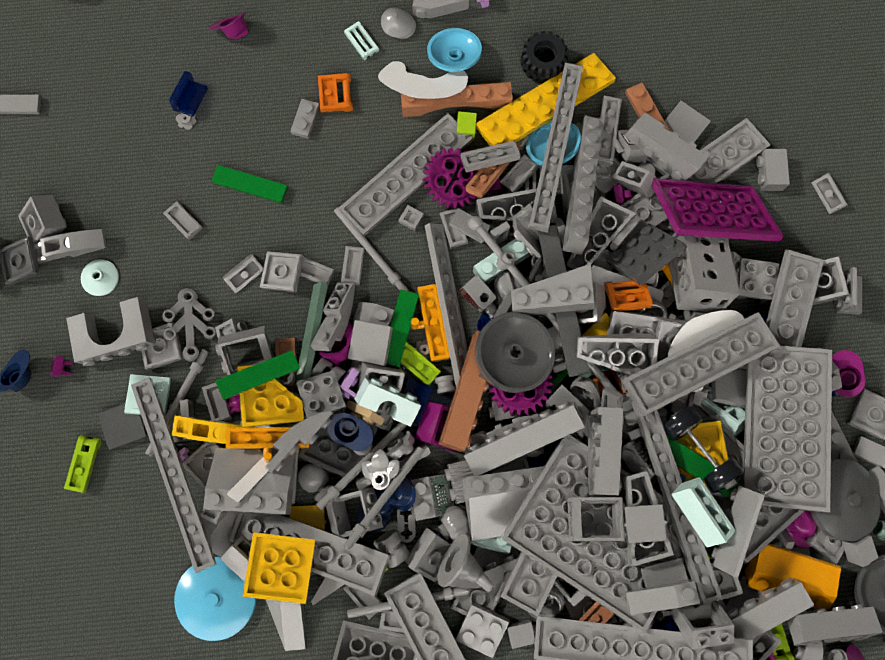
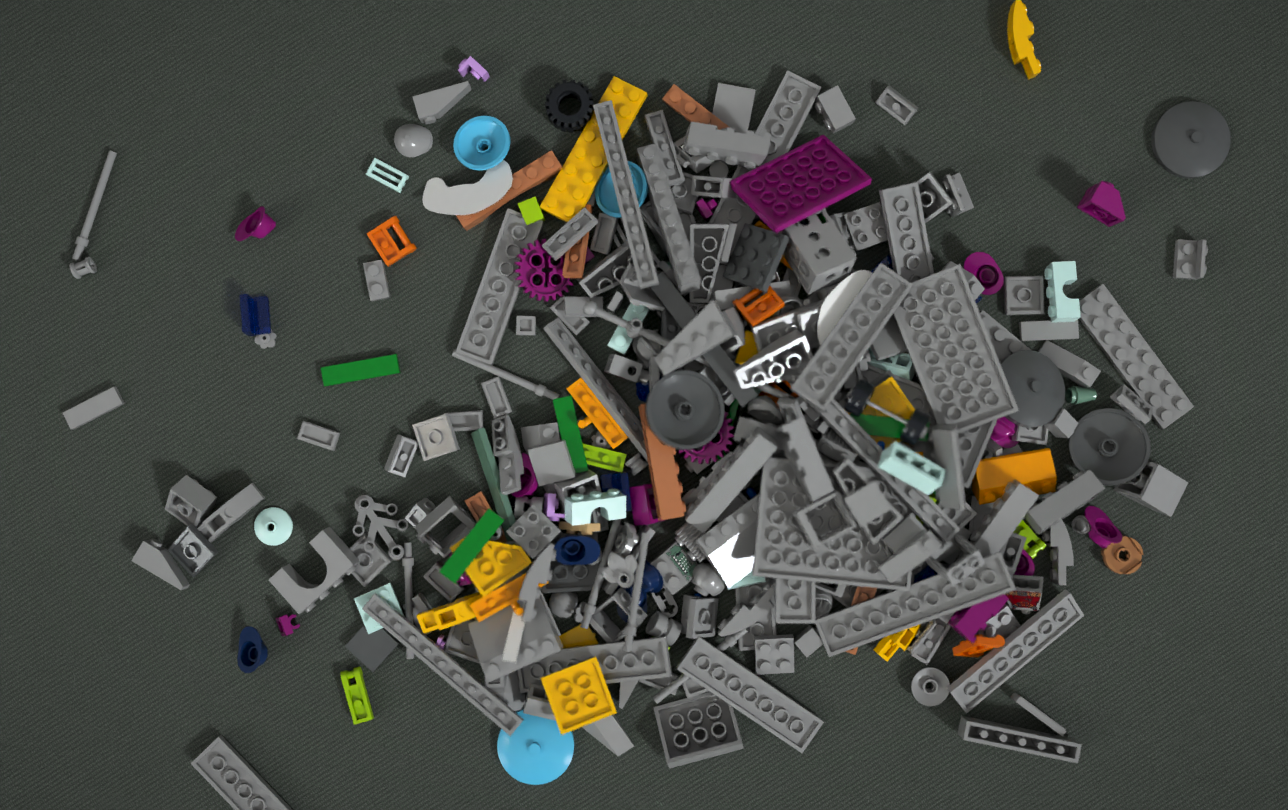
camera: 30 degrees left, 10 degrees up
(461, 565) = (730, 613): light grey piece -> none

